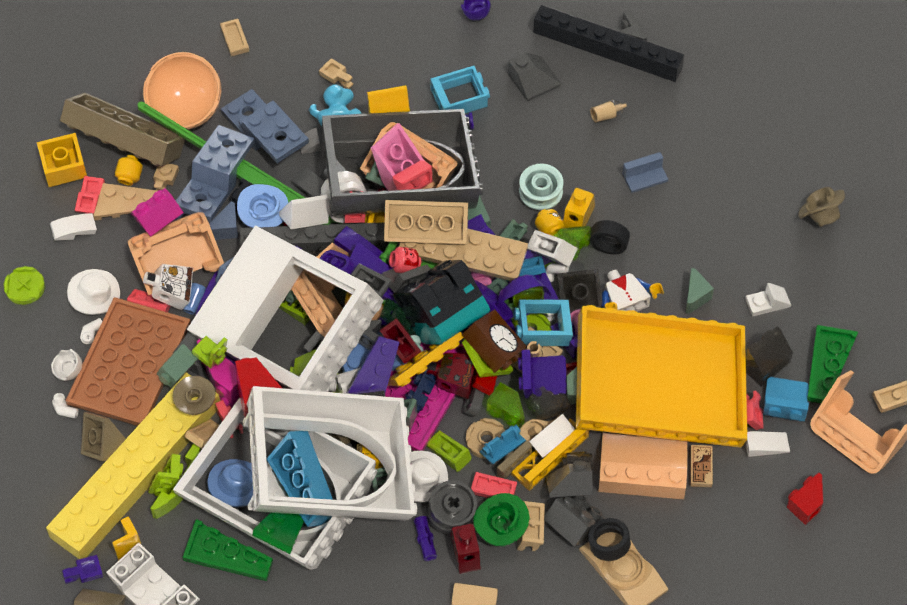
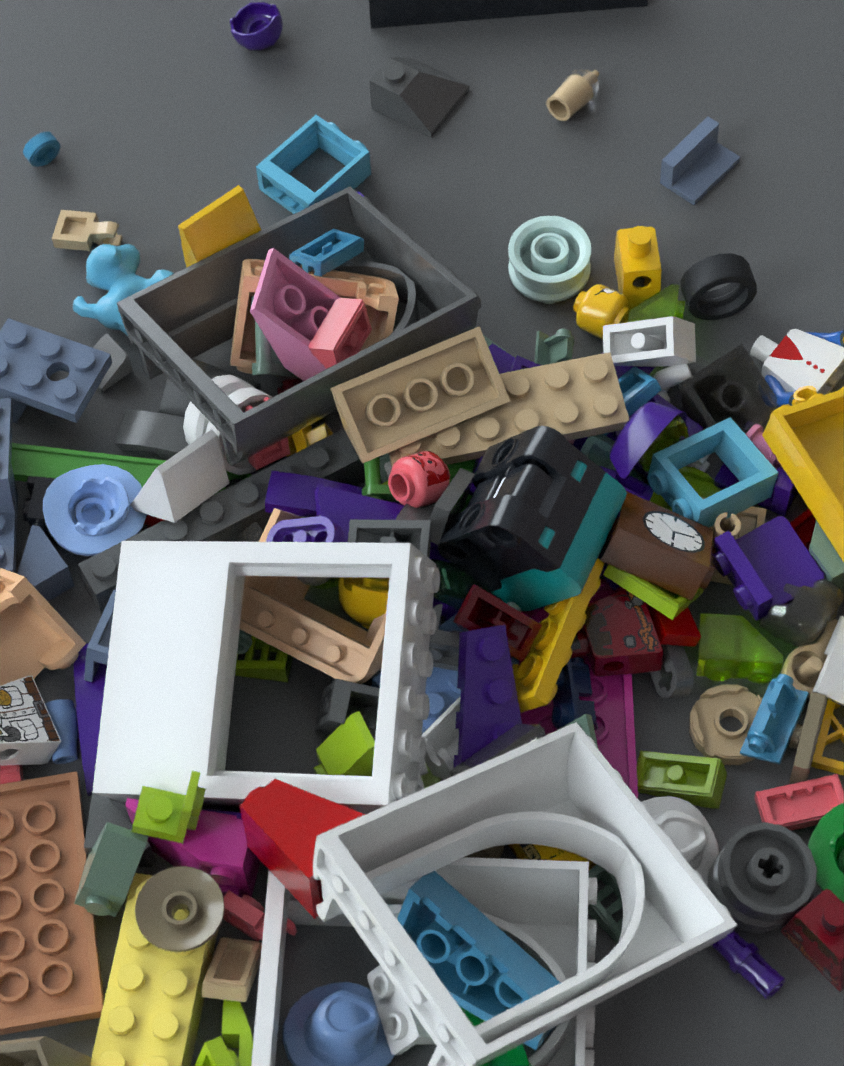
camera: 25 degrees left, 0 degrees up
(339, 24) = (41, 149): none -> dark azure tile
(433, 135) = (327, 252): none -> dark azure tile

